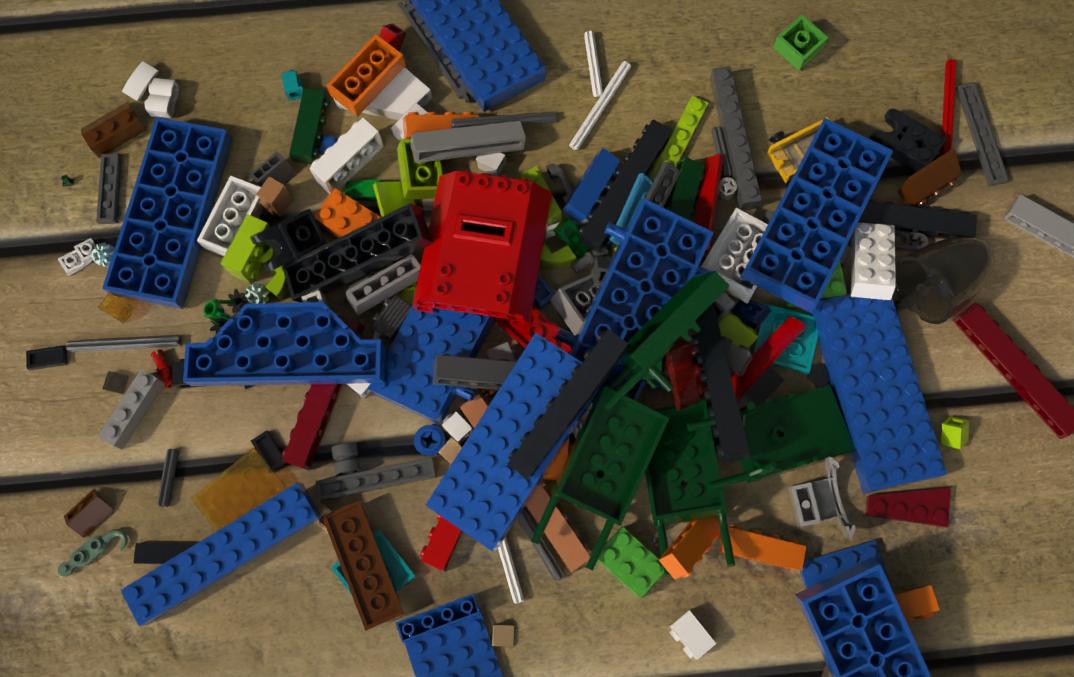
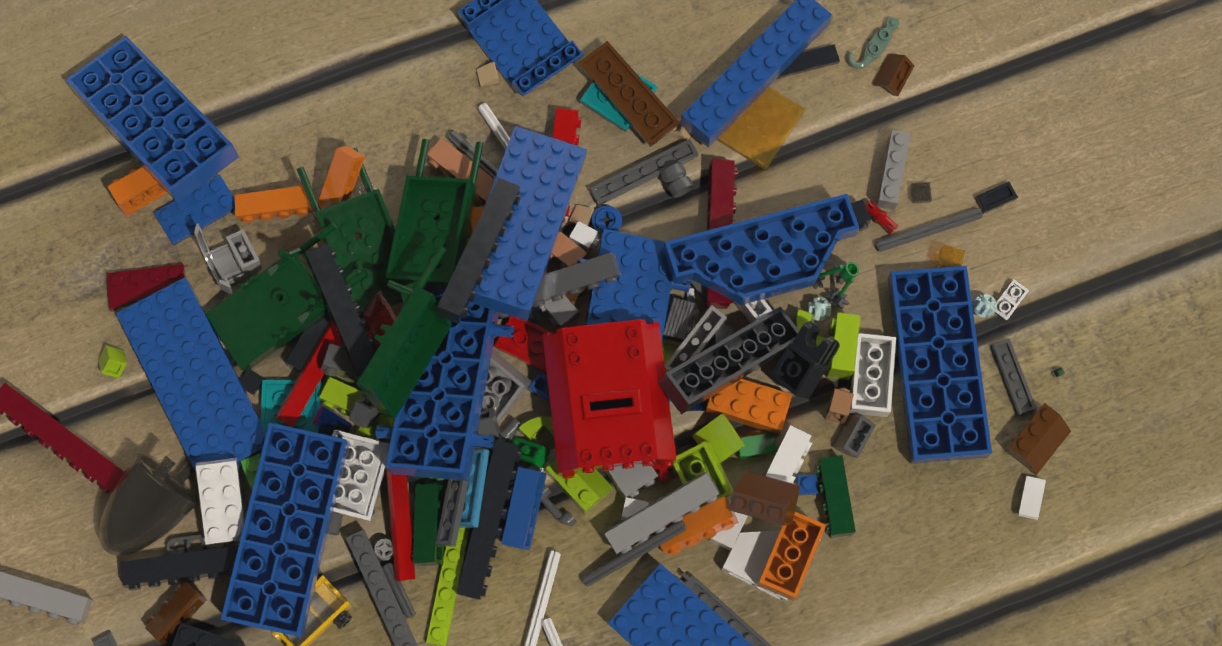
camera: 155 degrees right, 0 degrees up
(162, 98) = (1000, 485): white brick -> none
(167, 478) = (835, 123): dark grey axle -> none
(269, 450) = (752, 172): black tile -> none
(292, 85) = (871, 538): teal brick -> none
(371, 117) = (765, 498): none -> reddish brown slope
(393, 35) = (785, 617): red brick -> none
(631, 562) = (389, 160): bright green brick -> none
(692, 635) = (321, 118): white brick -> none

